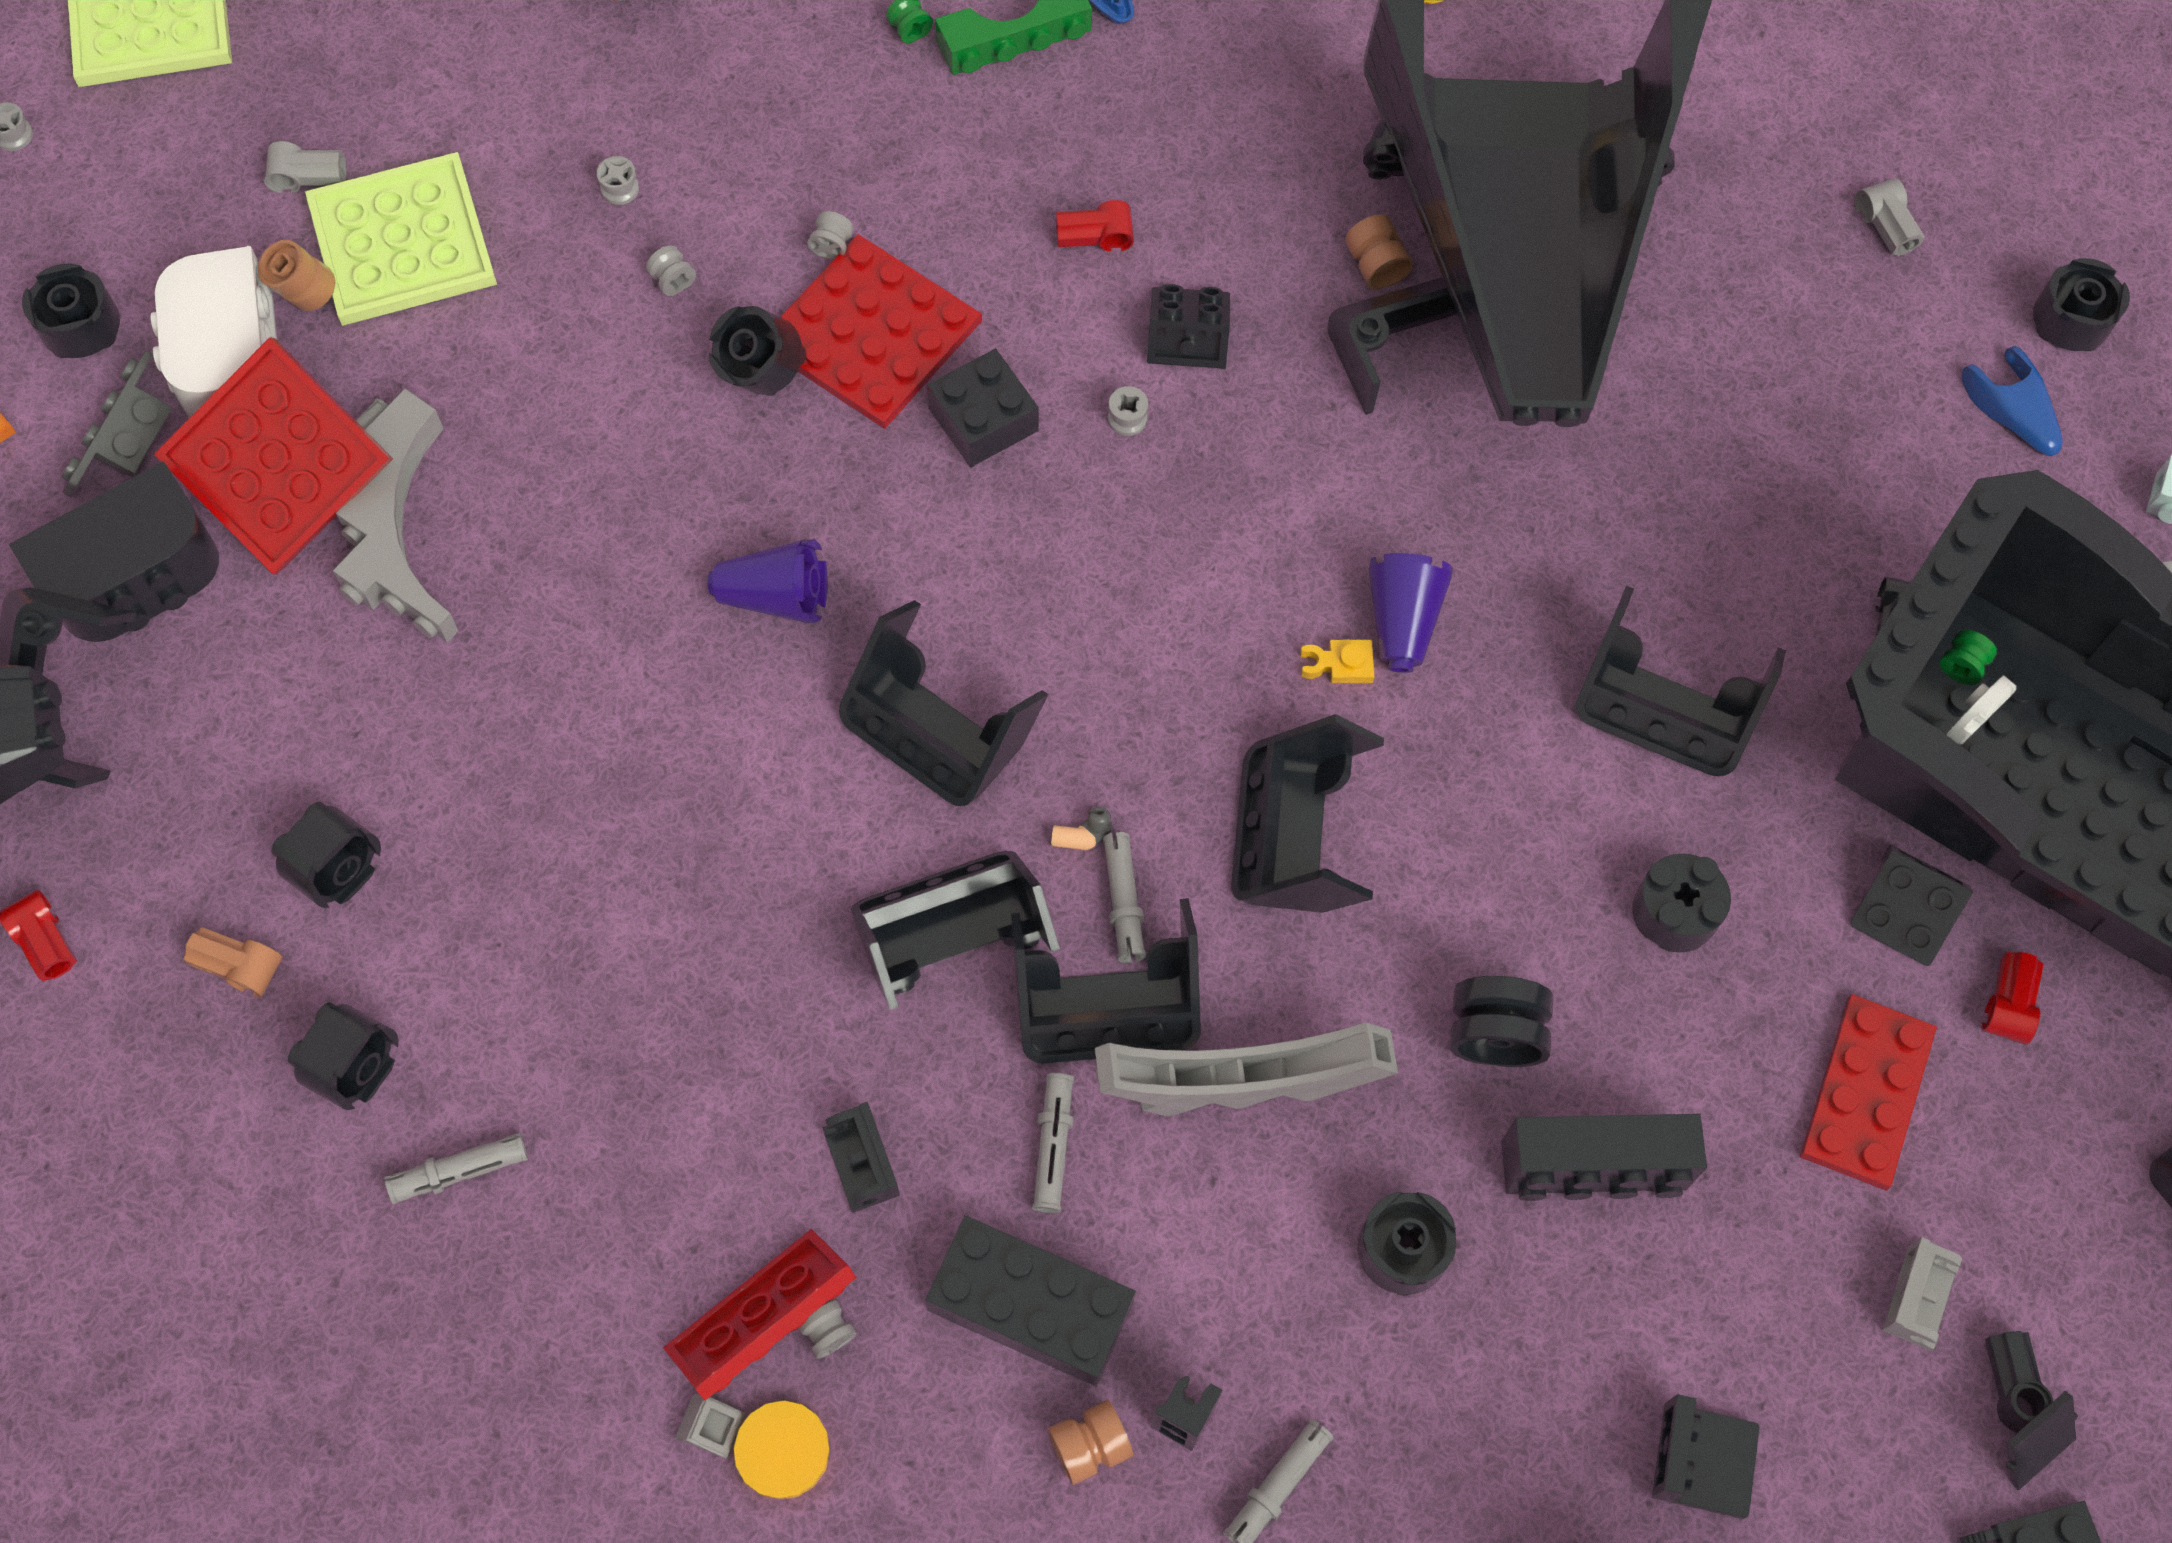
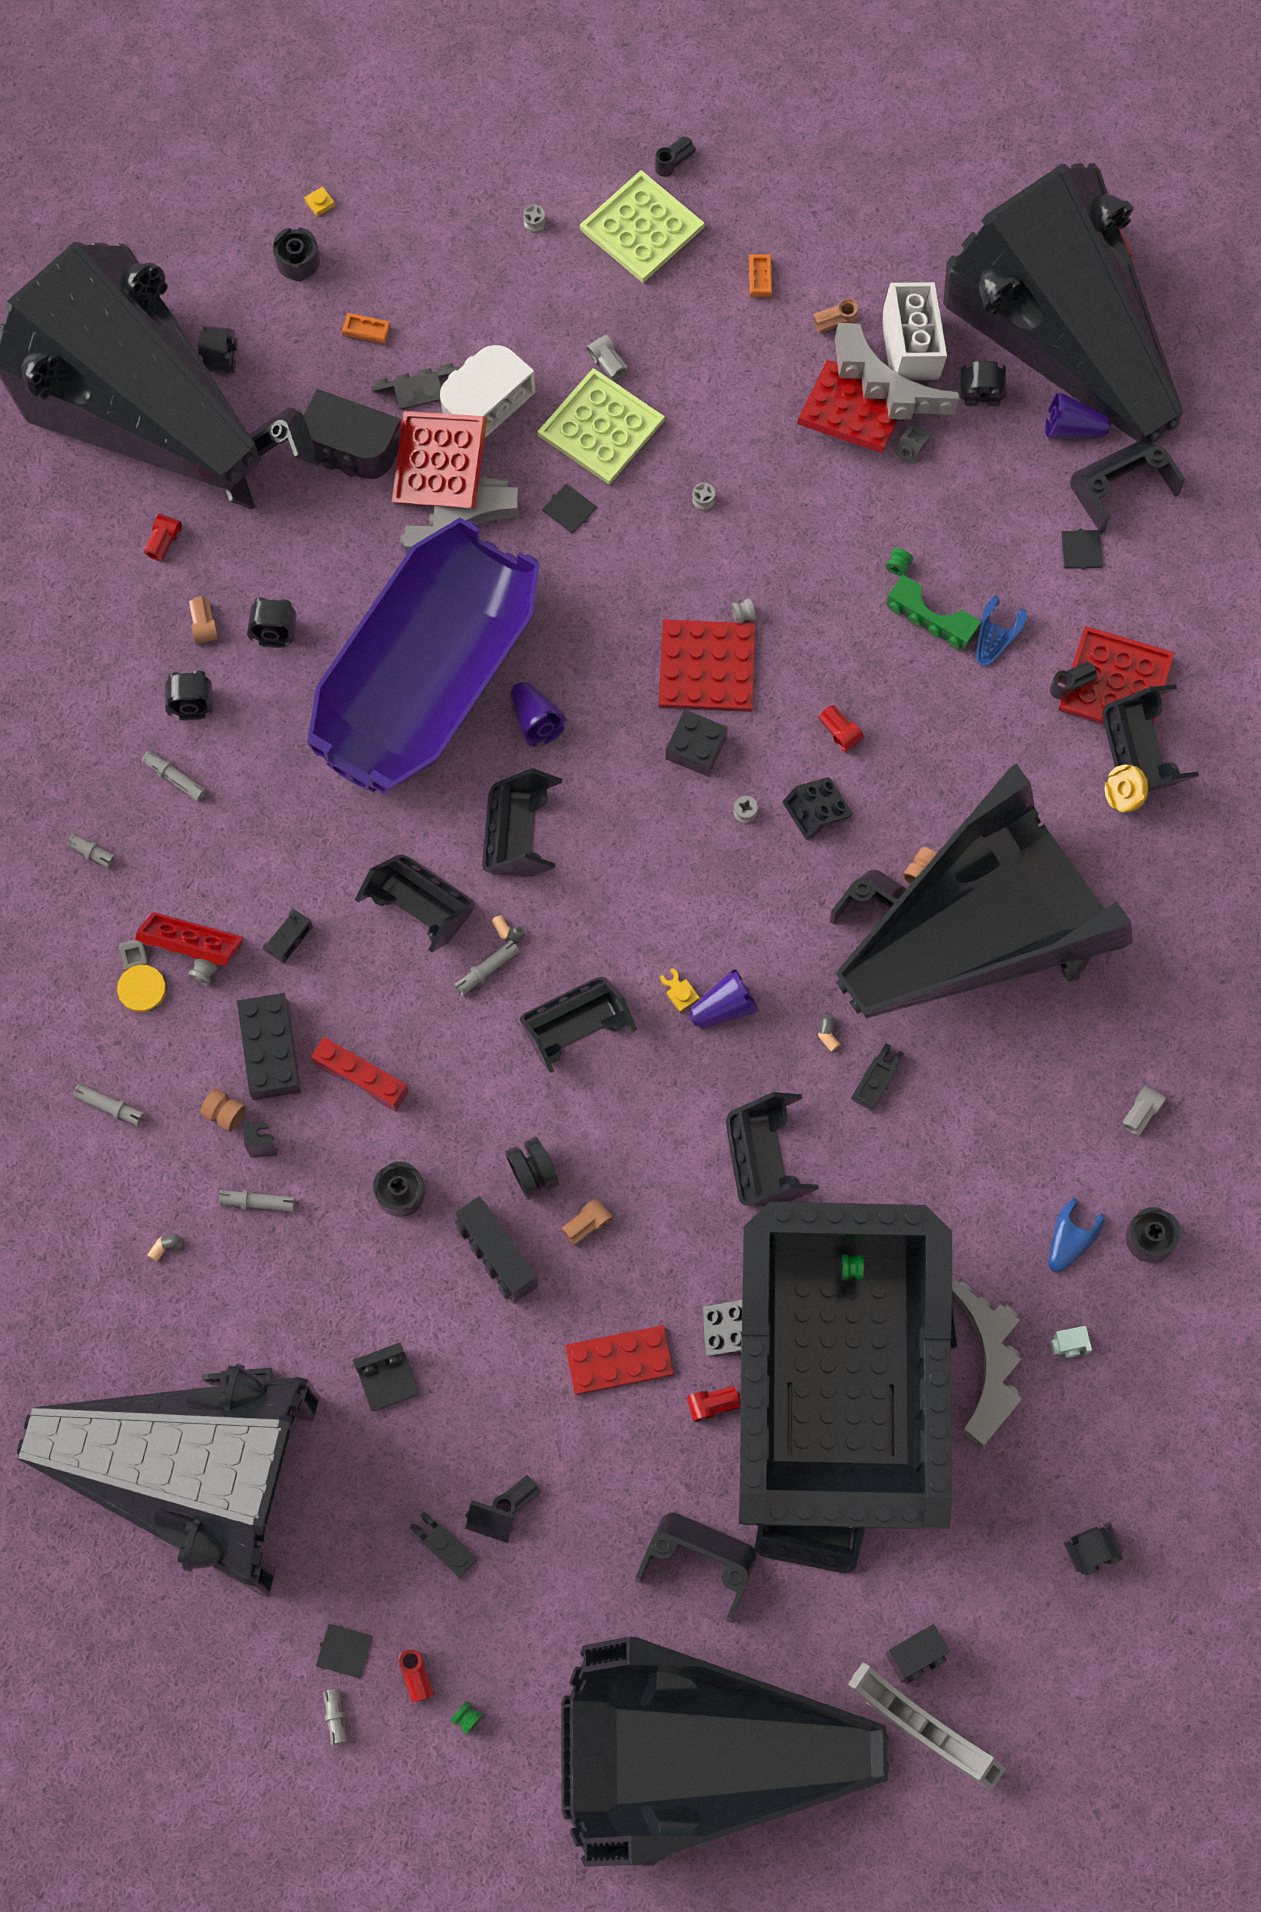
camera: 60 degrees right, 5 degrees up
(71, 311) = (456, 320): black brick -> none
(296, 275) = (541, 399): nougat wheel -> none
(480, 1383) = (90, 850): none -> light grey pin
(487, 355) = (569, 508): none -> black piece
(584, 666) = (421, 657): none -> dark purple cylinder
(670, 270) = (670, 554): light grey wheel -> none
(755, 350) = (649, 622): black brick -> none
(1058, 1090) = (348, 1011): light grey pin -> none
(1132, 1009) = (422, 990): black windscreen -> none
(1153, 1193) = (356, 1070): none -> red arch
(1241, 1077) = (426, 1066): light grey arch -> none
(1531, 514) = (825, 1032): none -> arm
(1625, 994) = (589, 1220): none -> nougat piece
(1643, 492) = (876, 1079): none -> black hinge
(1665, 891) = (655, 1204): black brick -> none
(1922, 1293) = (529, 1435): light grey hinge -> none
(1982, 705) = (831, 1287): white plate -> none

